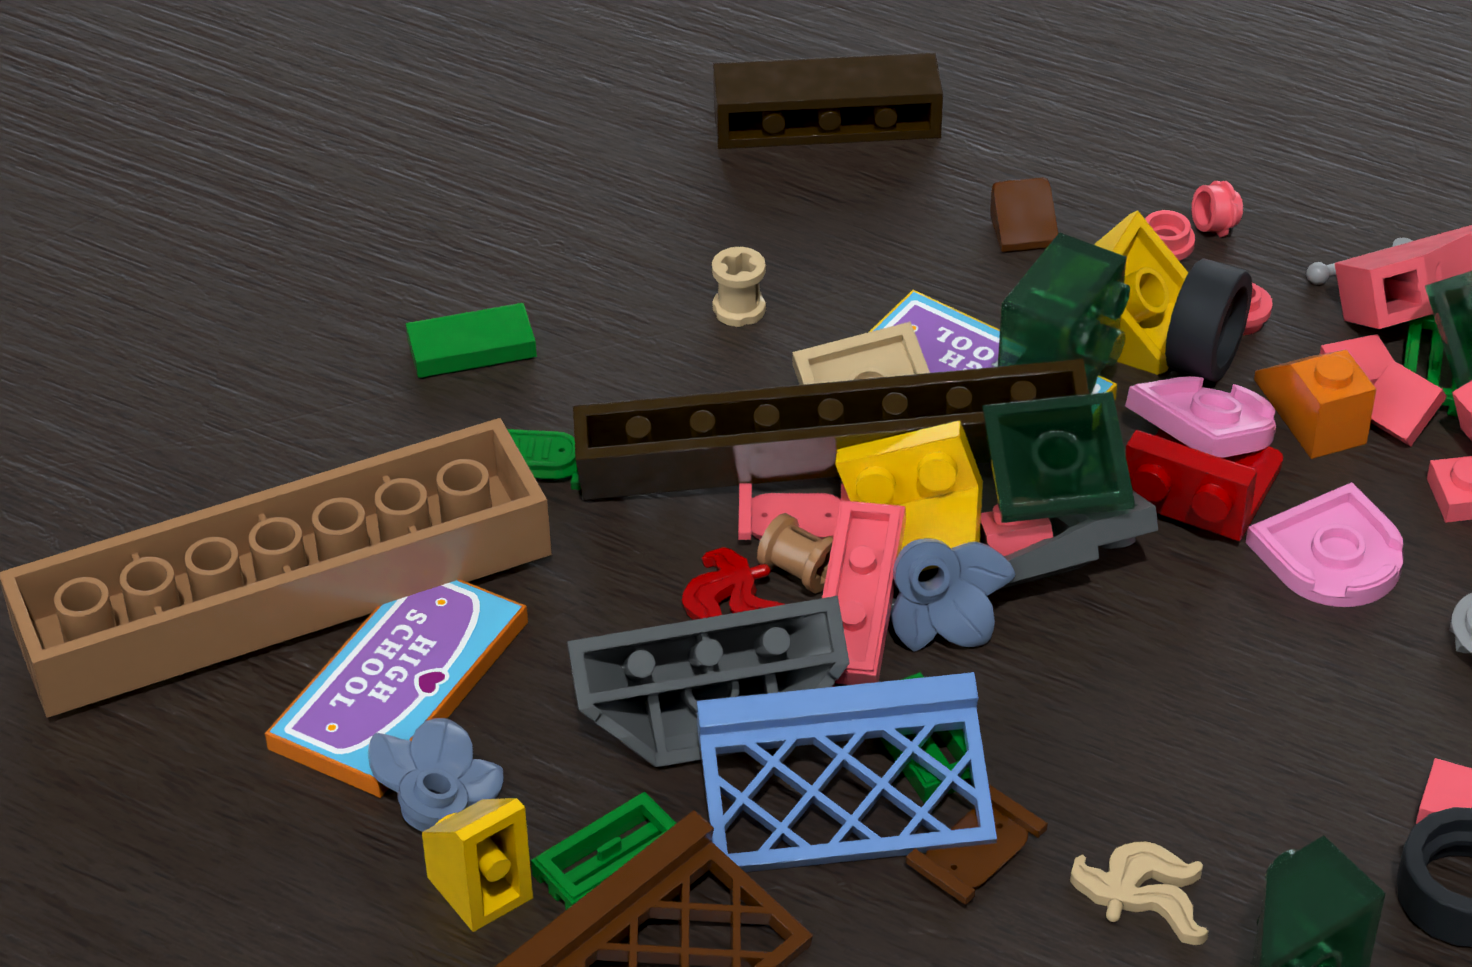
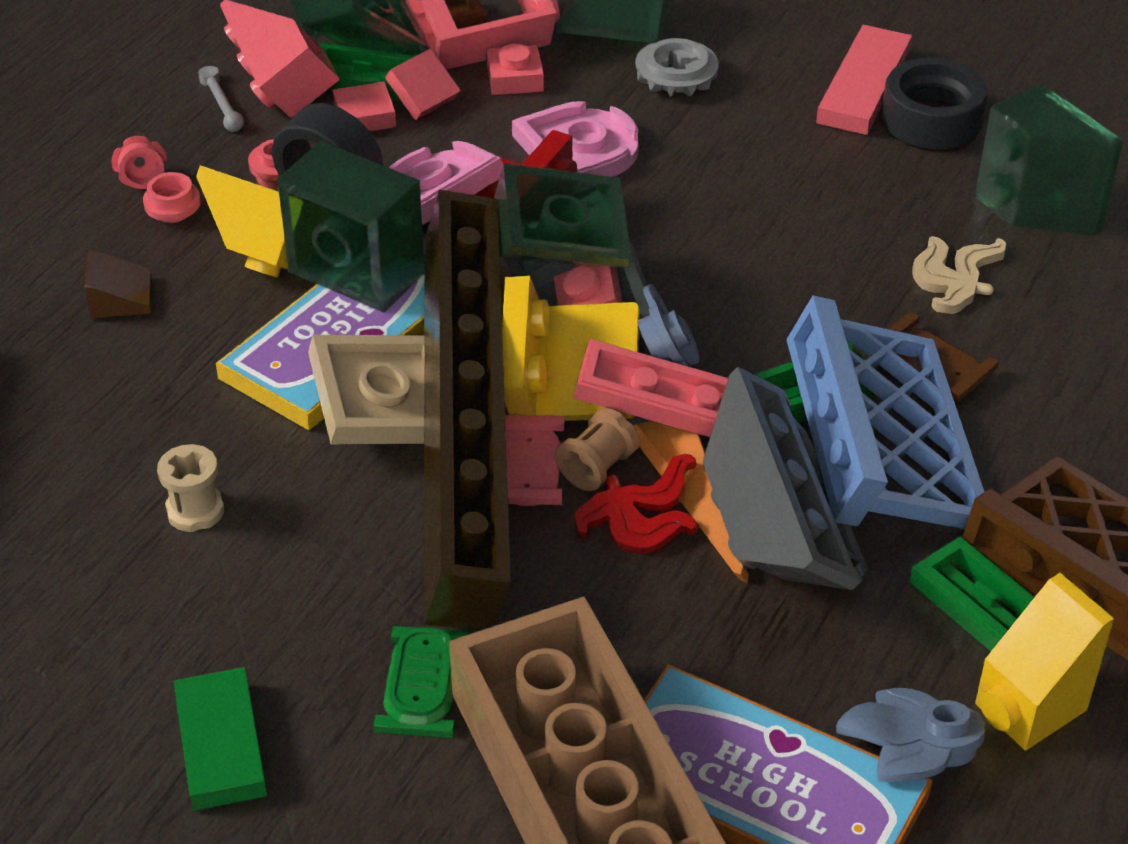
camera: 90 degrees left, 0 degrees up
(1321, 400) = (415, 114): orange slope -> none

